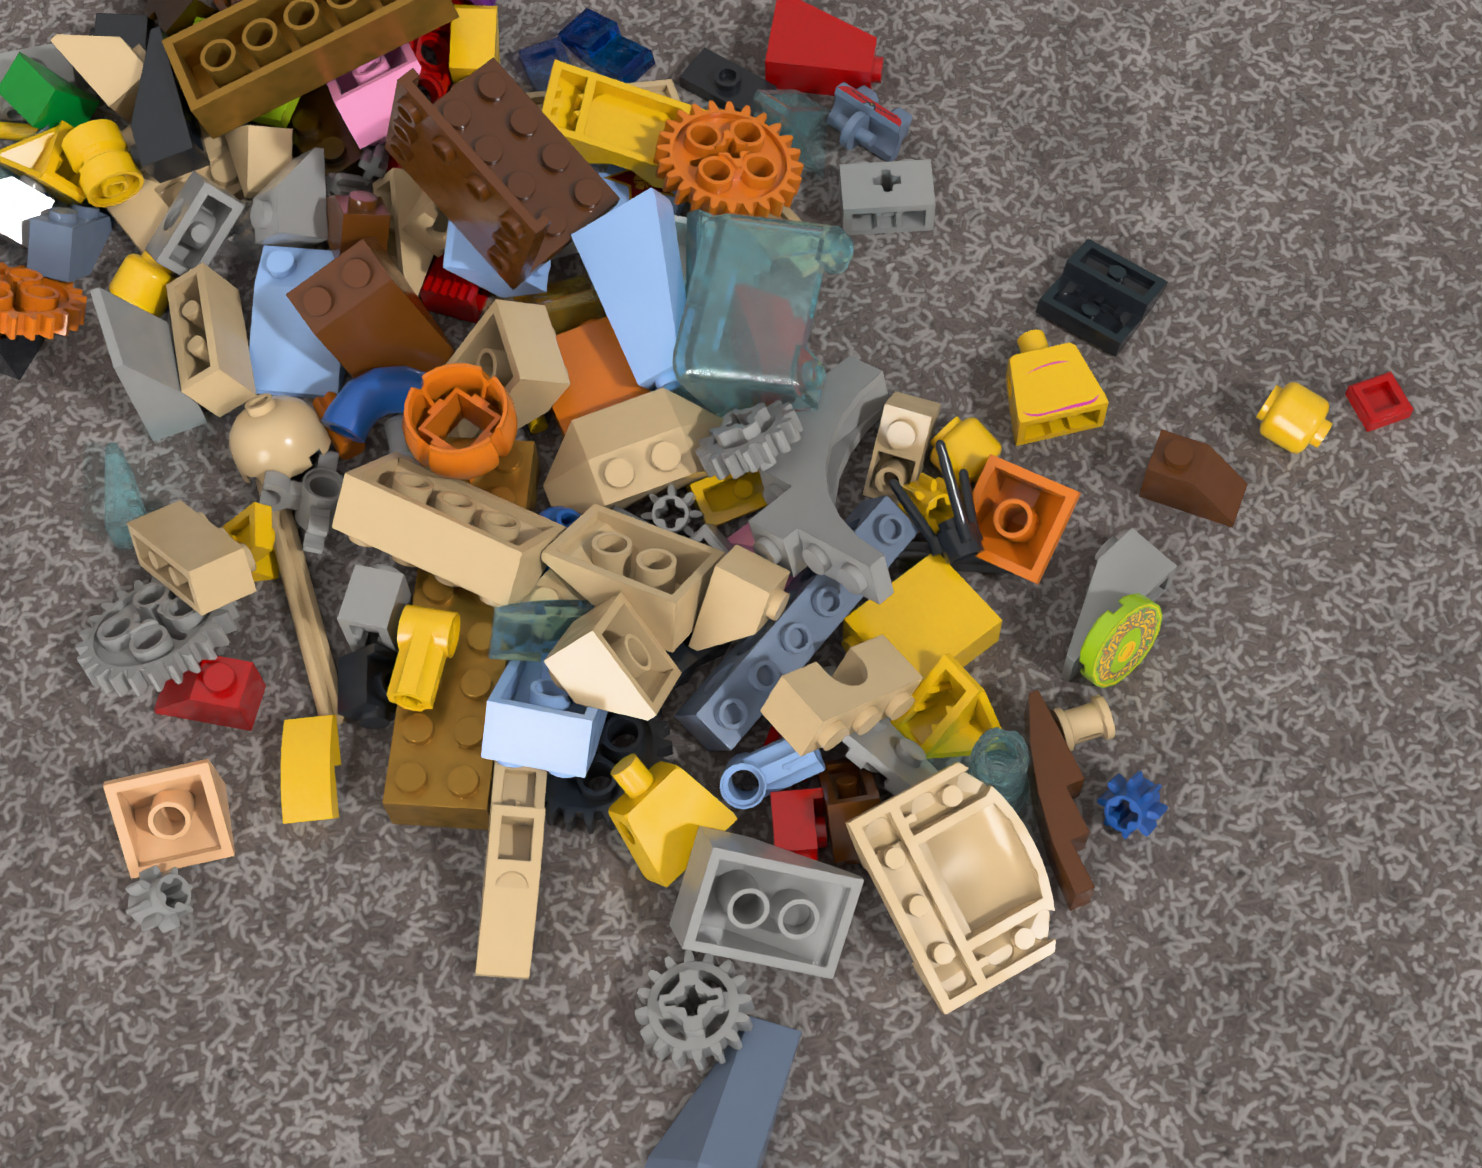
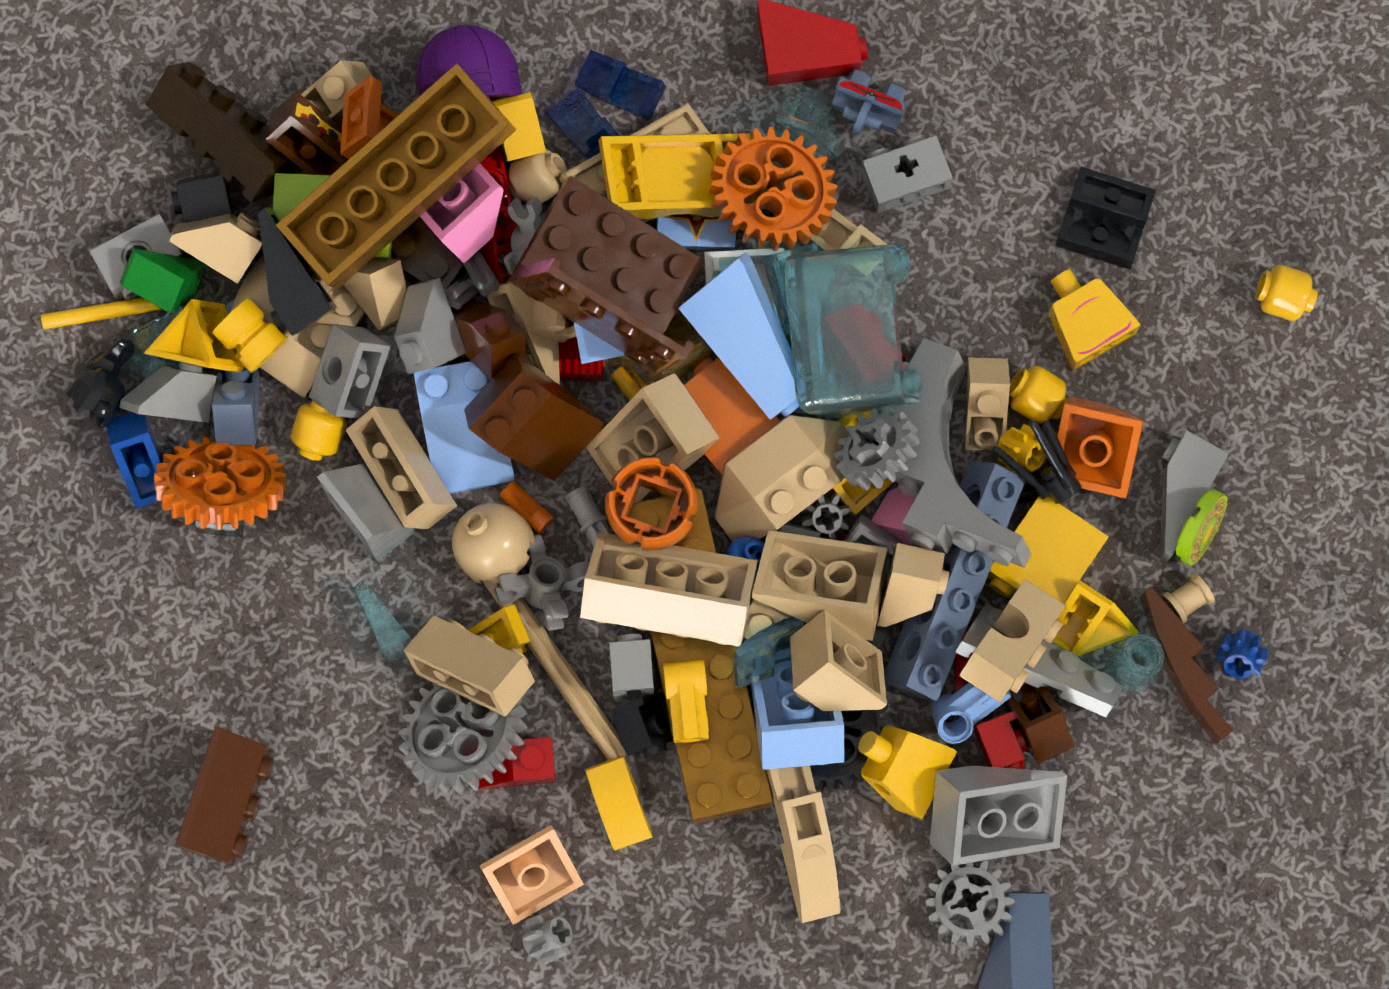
camera: 20 degrees left, 15 degrees up
(369, 399) = (562, 478): blue cylinder -> none
(722, 81) = (737, 95): black plate -> none
(958, 883) = (1134, 755): tan slope -> none
(1193, 479) = (1220, 369): reddish brown slope -> none
(1379, 401) = (1347, 253): red tile -> none

